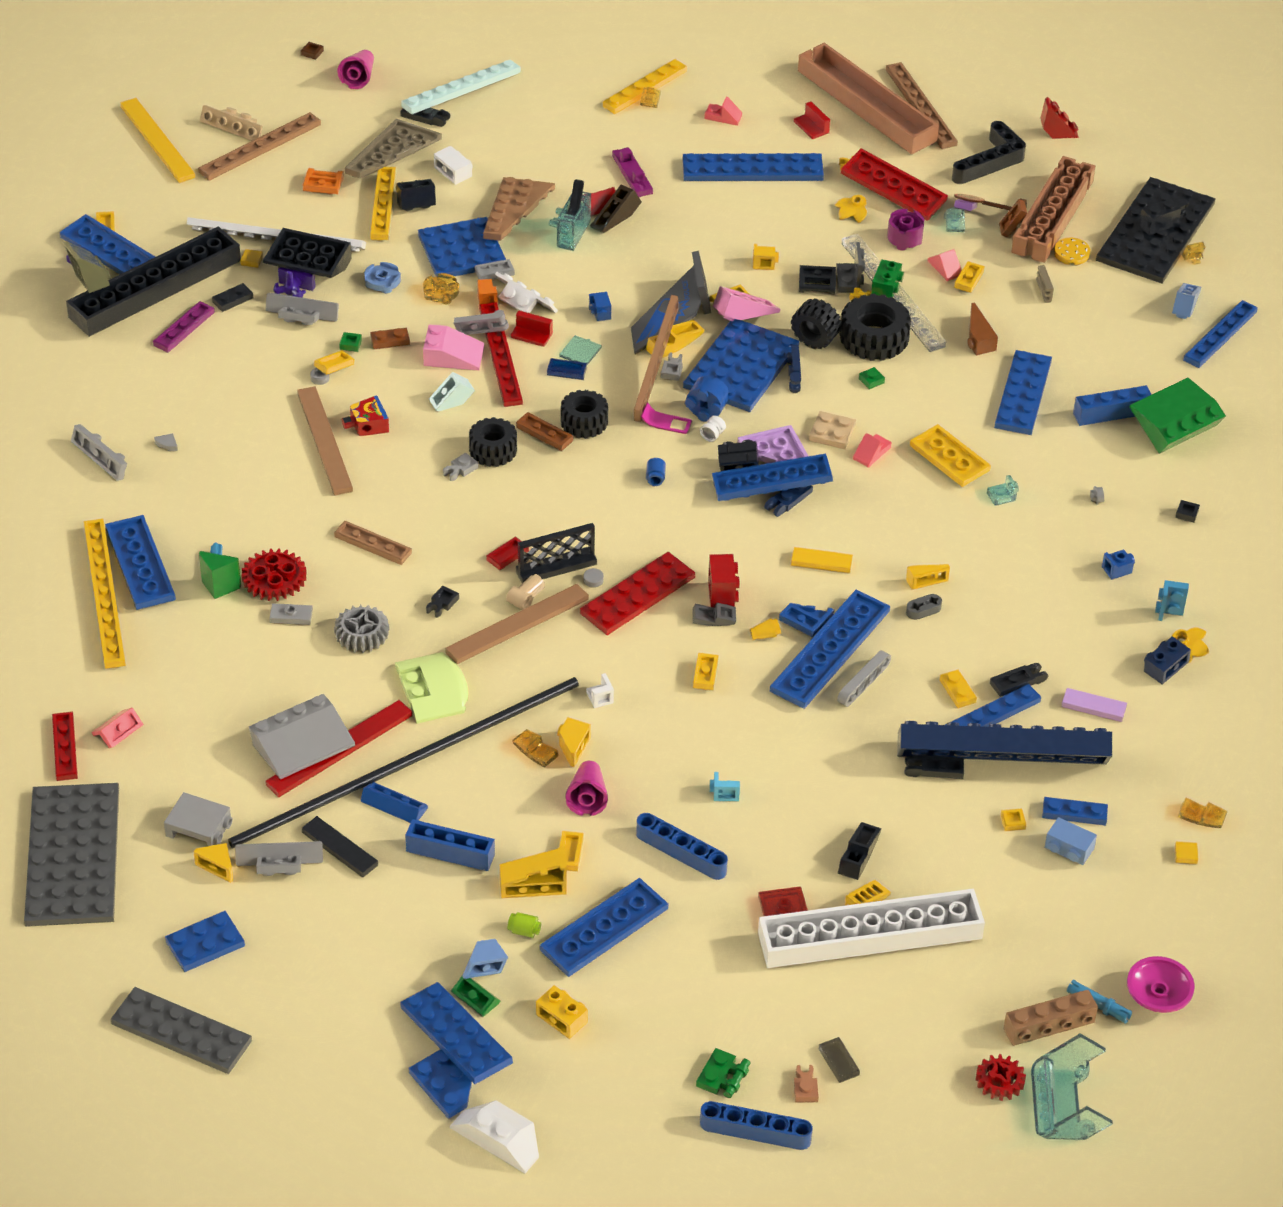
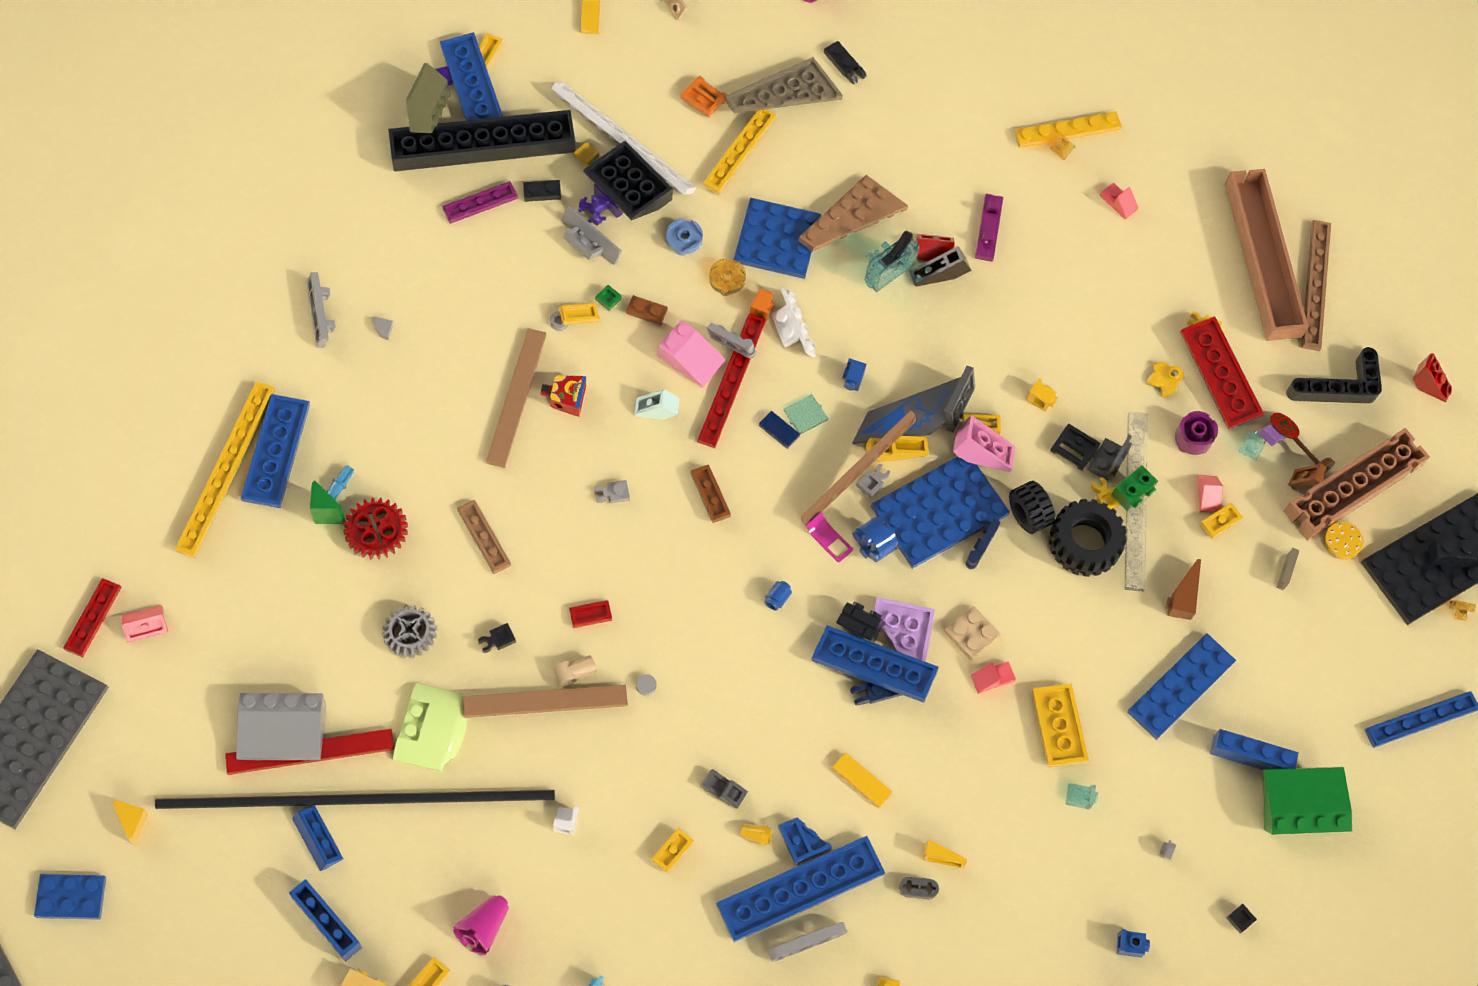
camera: 25 degrees right, 20 degrees up
(198, 819) = (142, 767): light grey panel -> none
(259, 146) = (676, 26): medium nougat tile -> none
(279, 857) = (180, 847): light grey bracket -> none
(291, 614) = (364, 578): light grey plate -> none
(340, 846) = (241, 860): black tile -> none
(416, 194) = (772, 156): black brick -> none
(453, 165) = (829, 137): white brick -> none
(460, 87) = (895, 48): light aqua plate -> none
(488, 270) = (789, 280): light grey plate -> none
(493, 441) = (655, 497): black tyre -> none
(532, 328) = (776, 368): red panel -> none
(534, 748) = (472, 849): clear yellow slope -> none
(559, 562) = (623, 648): black fence -> none
(573, 739) = (507, 861): yellow slope -> none
(584, 413) = (756, 480): black tyre -> none
(637, 593) = (673, 724): red plate -> none
(712, 429) = (861, 573): white wheel -> none
(722, 579) = (748, 761): red brick -> none
(753, 167) = (1105, 279): blue plate -> none
(813, 122) = (1196, 254): red panel -> none
(871, 378) = (1049, 591): green plate -> none
(1186, 300) = (1415, 661): medium blue slope -> none

